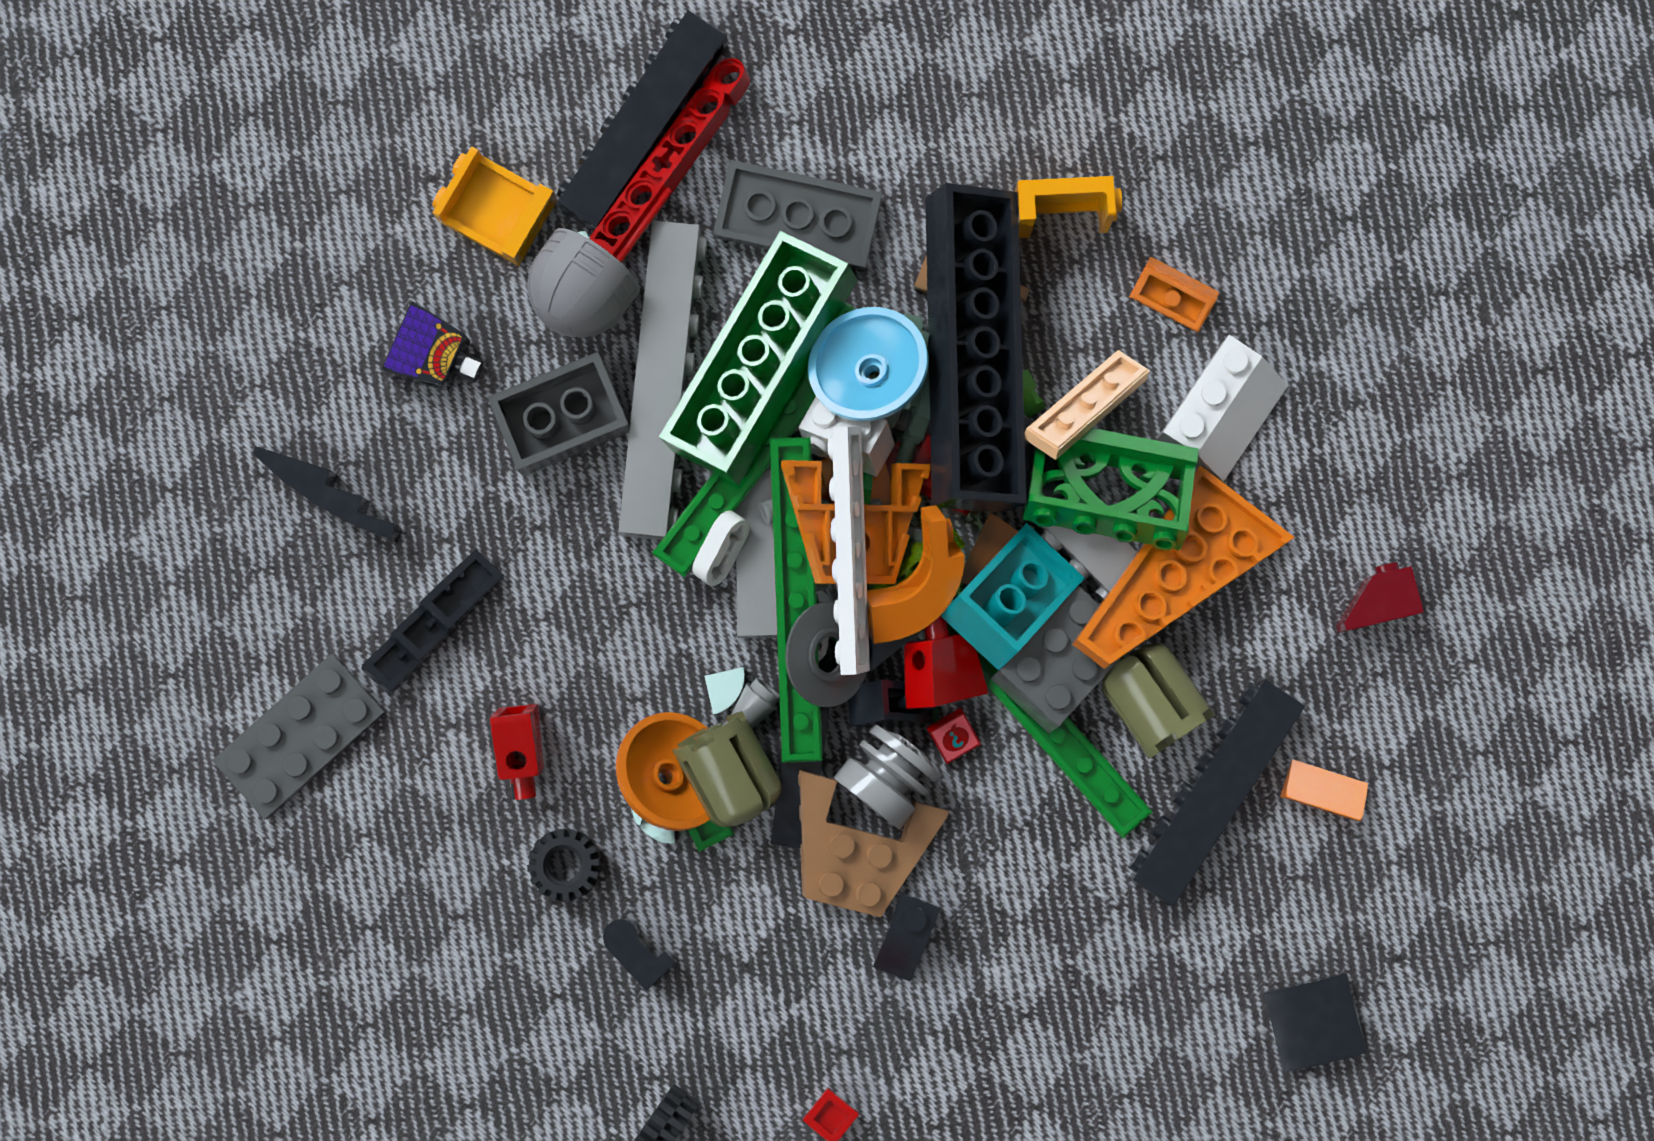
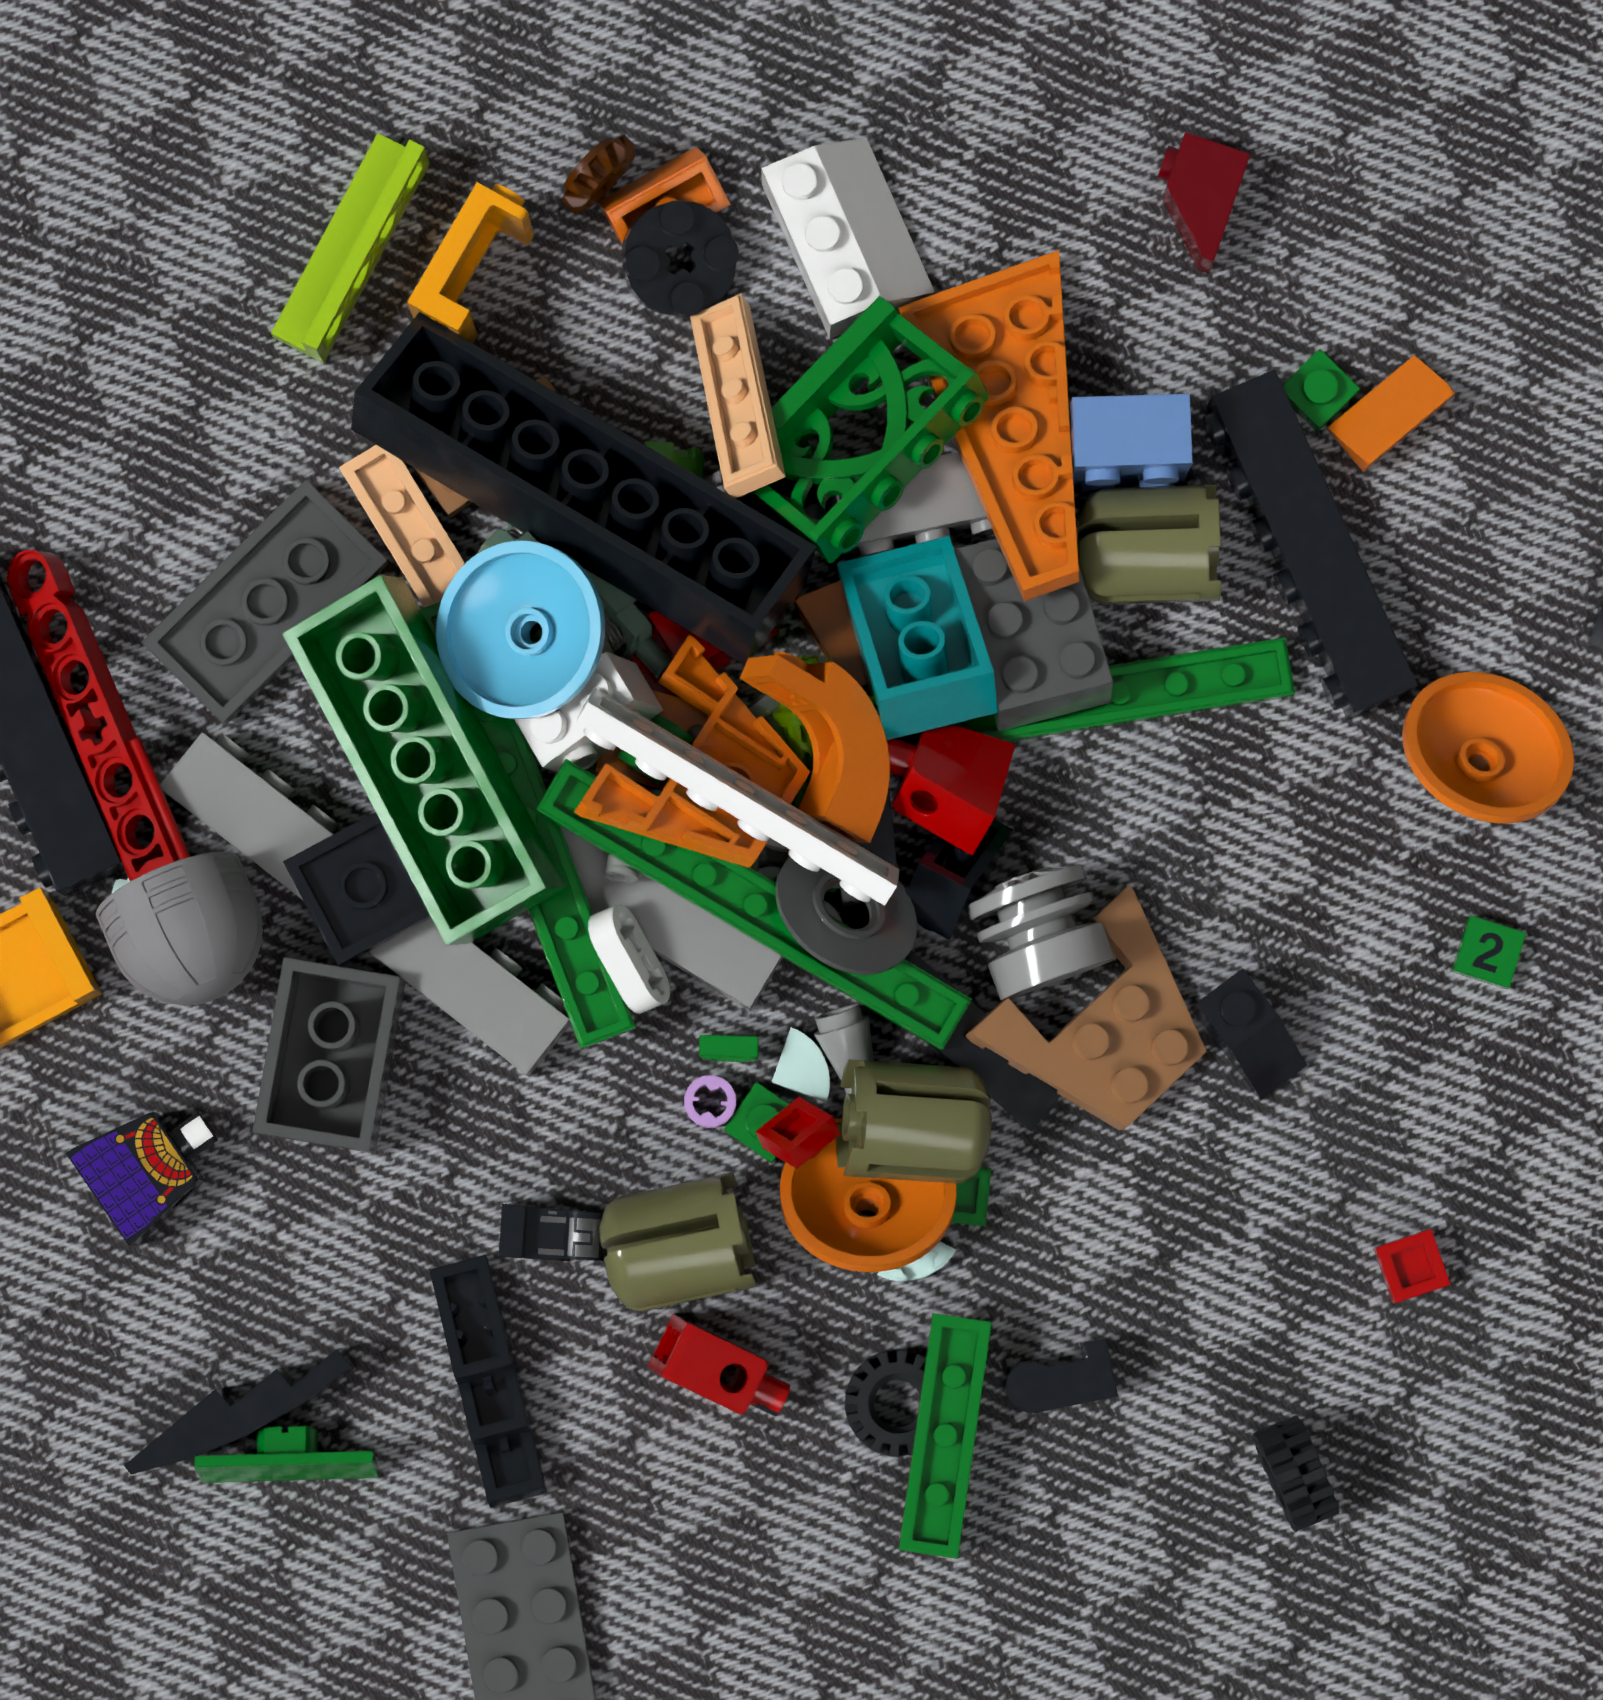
camera: 60 degrees left, 0 degrees up
(318, 534) = (287, 1458): none -> green piece
(538, 605) = (550, 1234): none -> leg
(560, 904) = (944, 1436): none -> green fence
(575, 680) = (677, 1244): none -> olive cylinder
(660, 367) = (357, 889): none -> black plate
(660, 652) = (707, 1119): none -> lavender bush
(678, 686) = (755, 1111): none -> green plate
(682, 709) = (798, 1132): none -> red plate
(707, 639) = (728, 1048): none -> green tile
(894, 262) = (404, 522): none -> light nougat plate
(953, 735) = (1039, 821): tile -> none
(1033, 134) = (351, 246): none -> lime fence
(1043, 1047) = (1488, 952): none -> green tile
(1164, 307) = (646, 264): none -> black plate
(1166, 244) = (598, 173): none -> reddish brown gear
(1177, 967) = (1499, 729): none -> orange dish
(1207, 647) = (1130, 440): none -> medium blue brick
(1311, 740) = (1319, 390): none -> green plate

